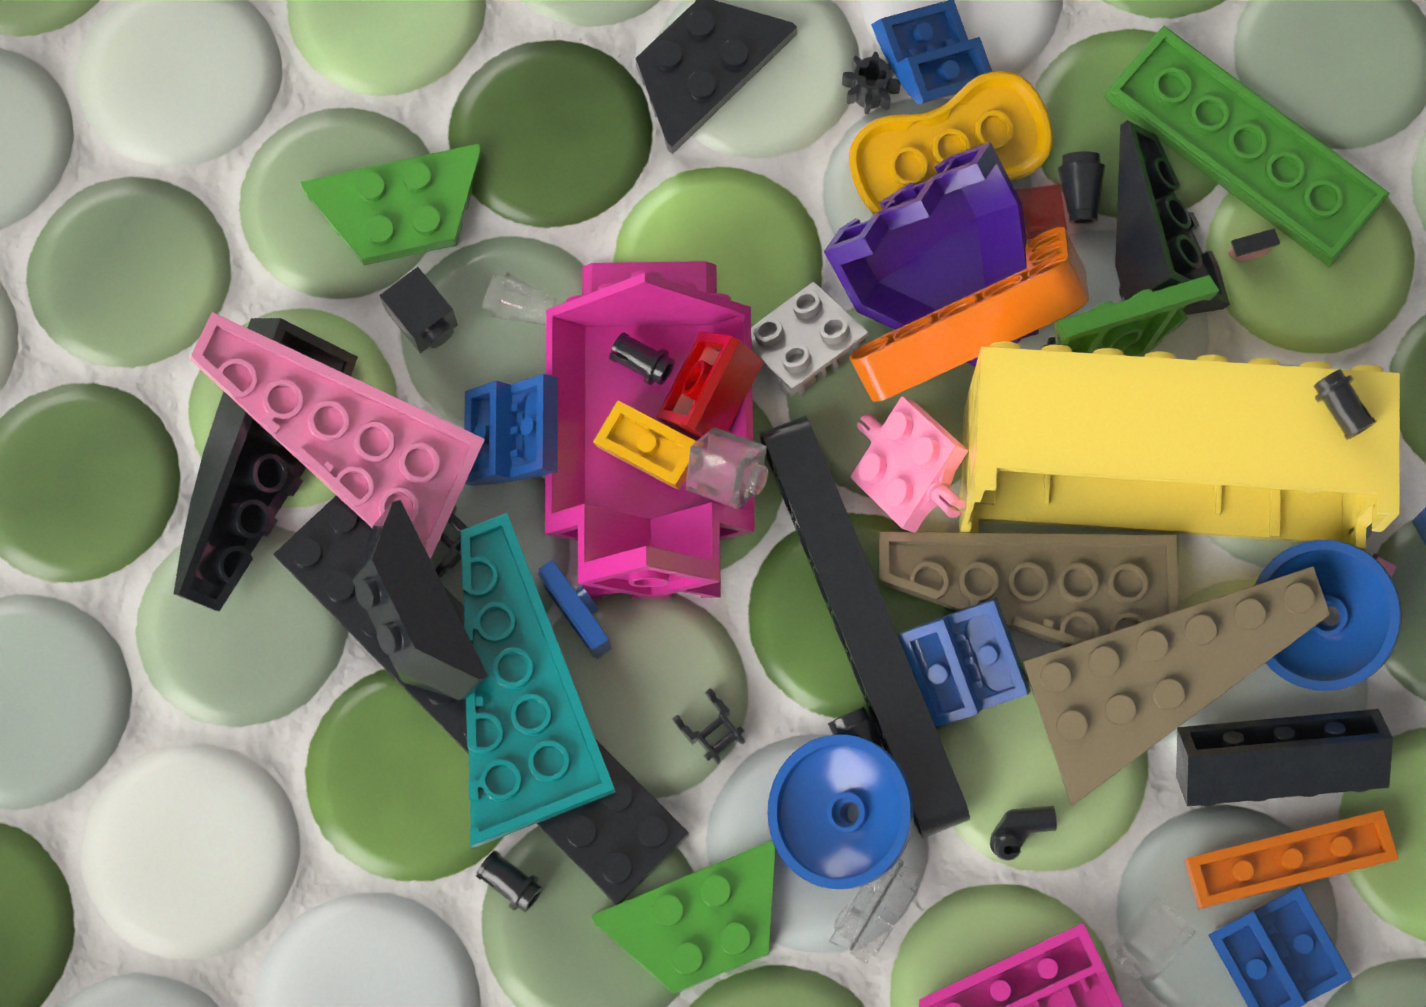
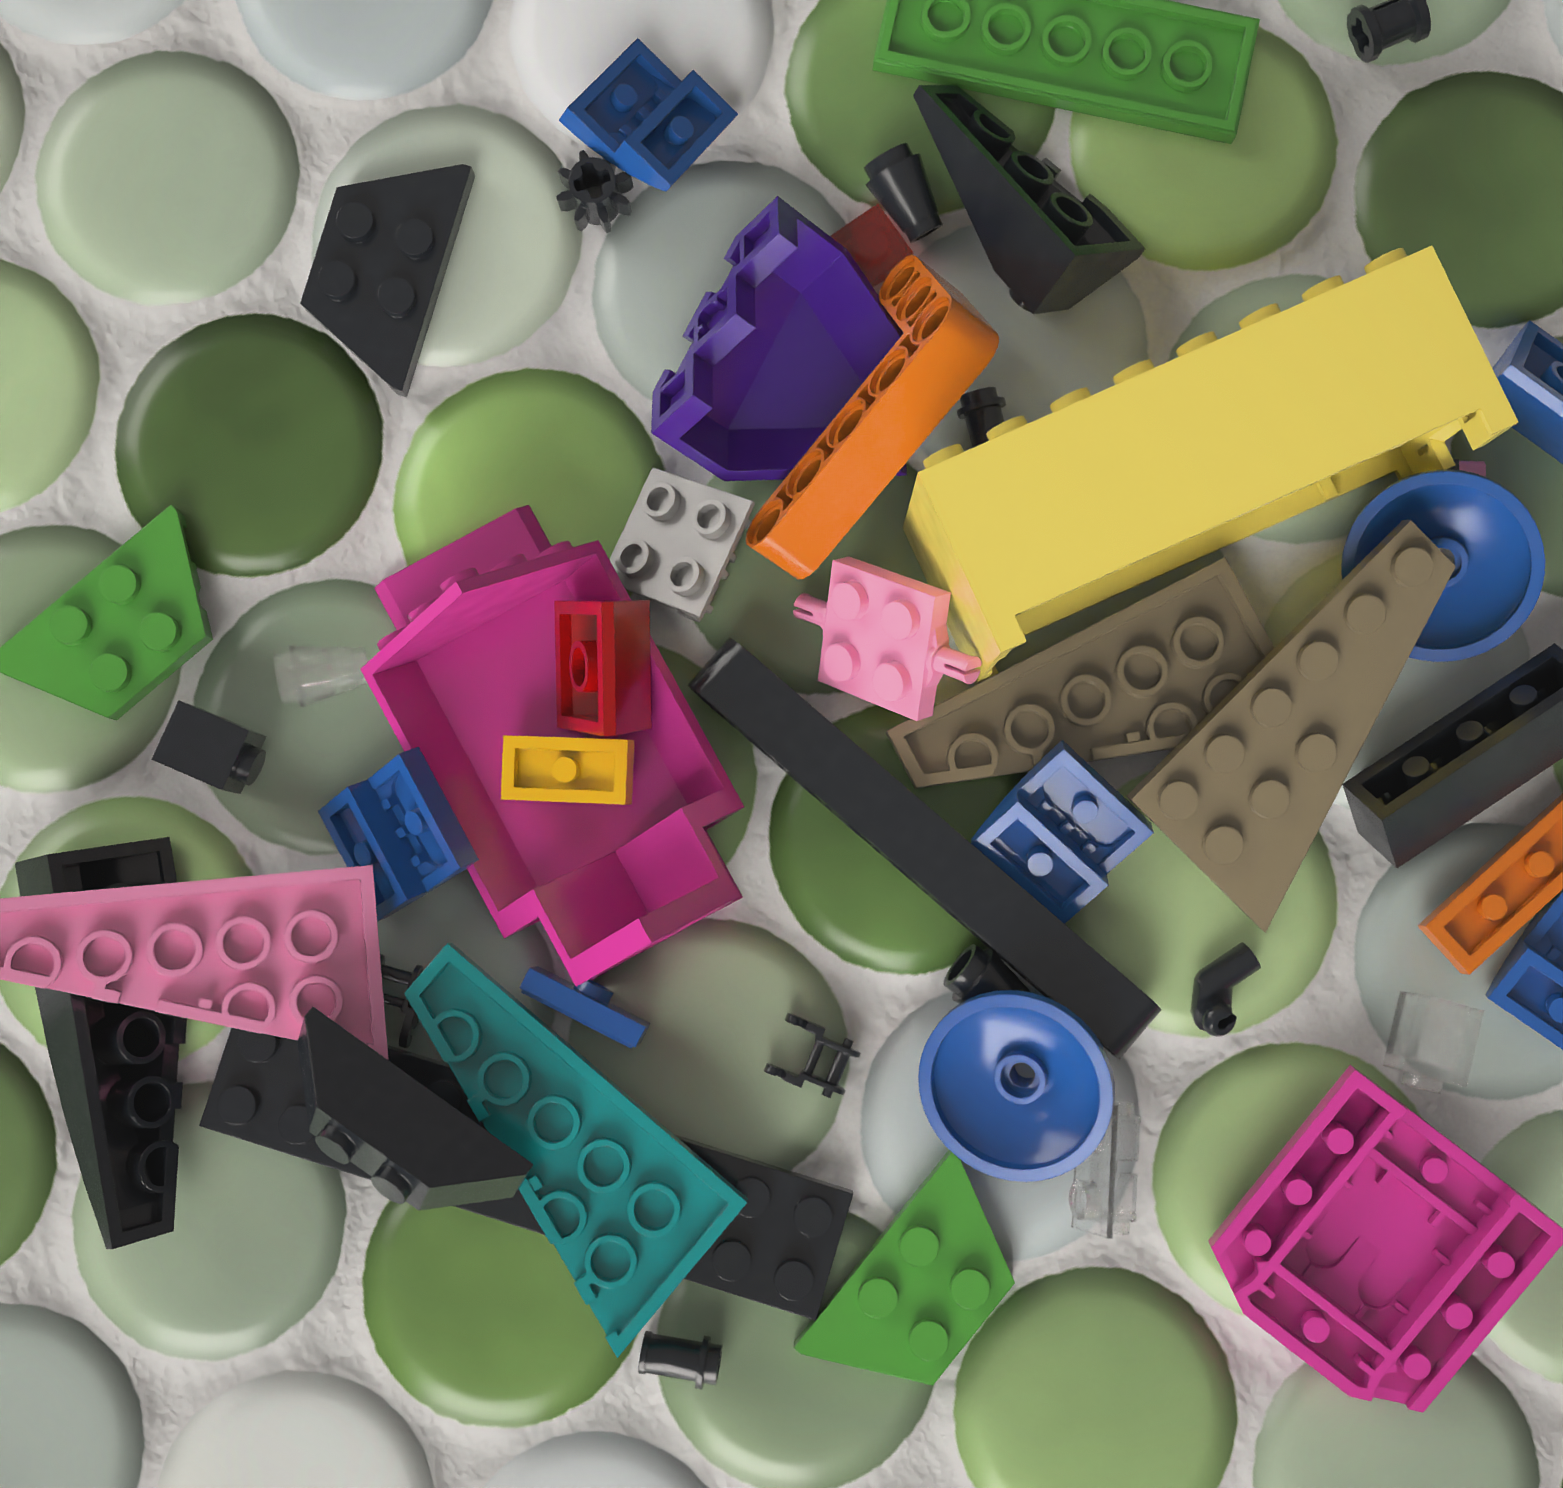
camera: 25 degrees left, 10 degrees up
(642, 359) = (504, 668): black pin -> none
(726, 468) = (676, 756): clear brick -> none
(988, 109) = (752, 156): yellow plate -> none
(1133, 324) = (1045, 352): bright green wing -> none
(1253, 245) = (1136, 162): black piece -> none
(1344, 403) = (1392, 320): black pin -> none

